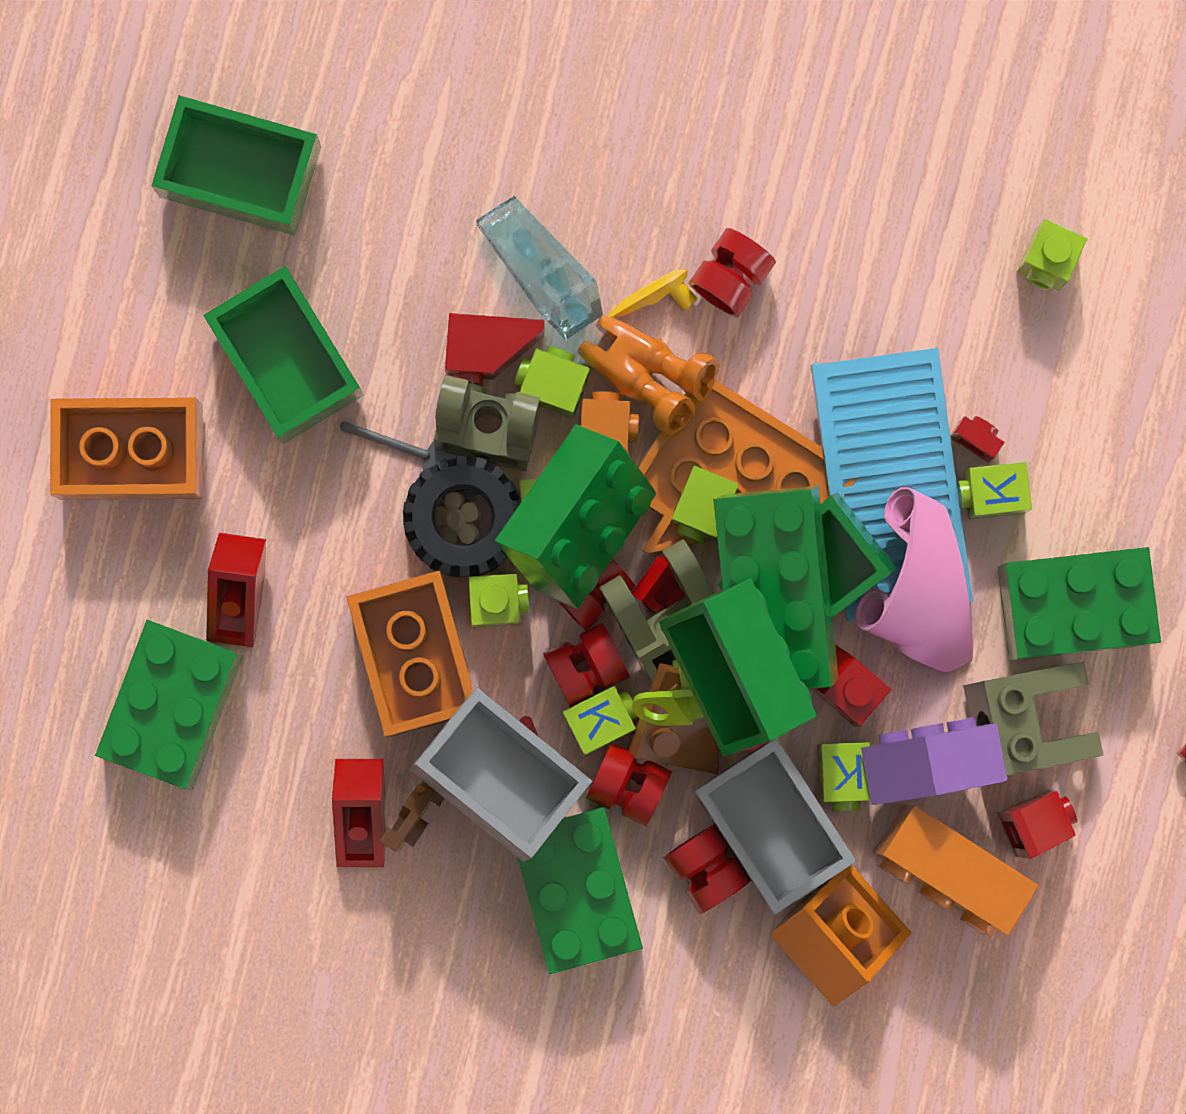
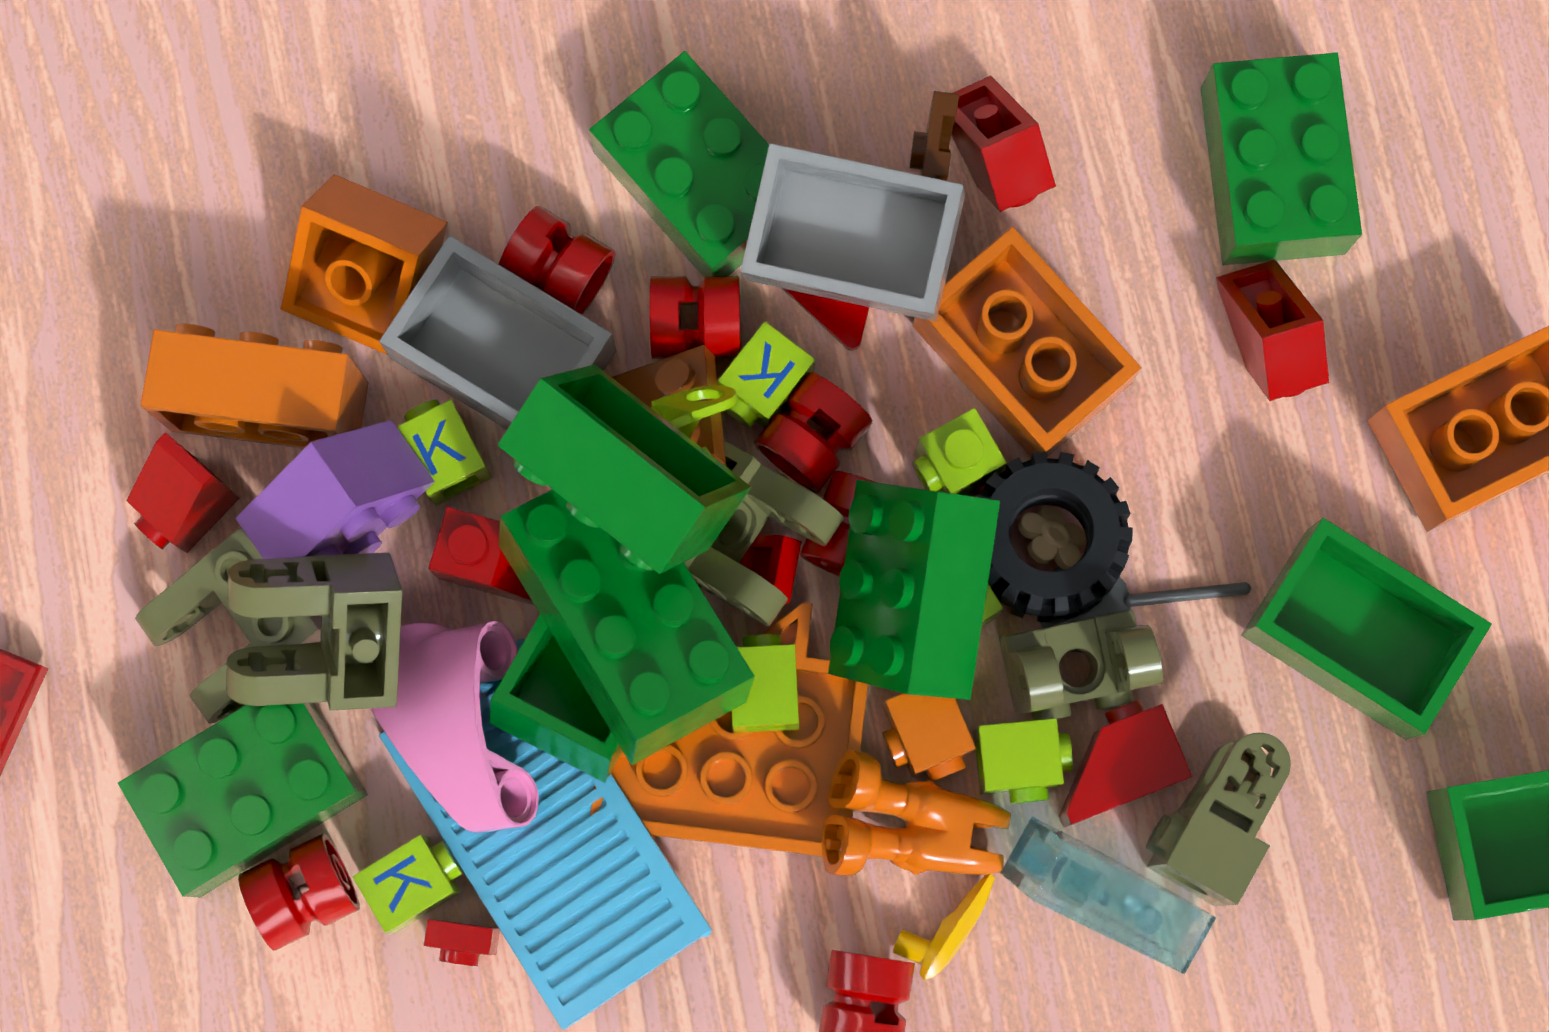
camera: 160 degrees right, 5 degrees down
(456, 269) = (1211, 837): none -> olive brick
(968, 649) = (358, 638): none -> olive brick
(1087, 517) = (277, 902): none -> red wheel

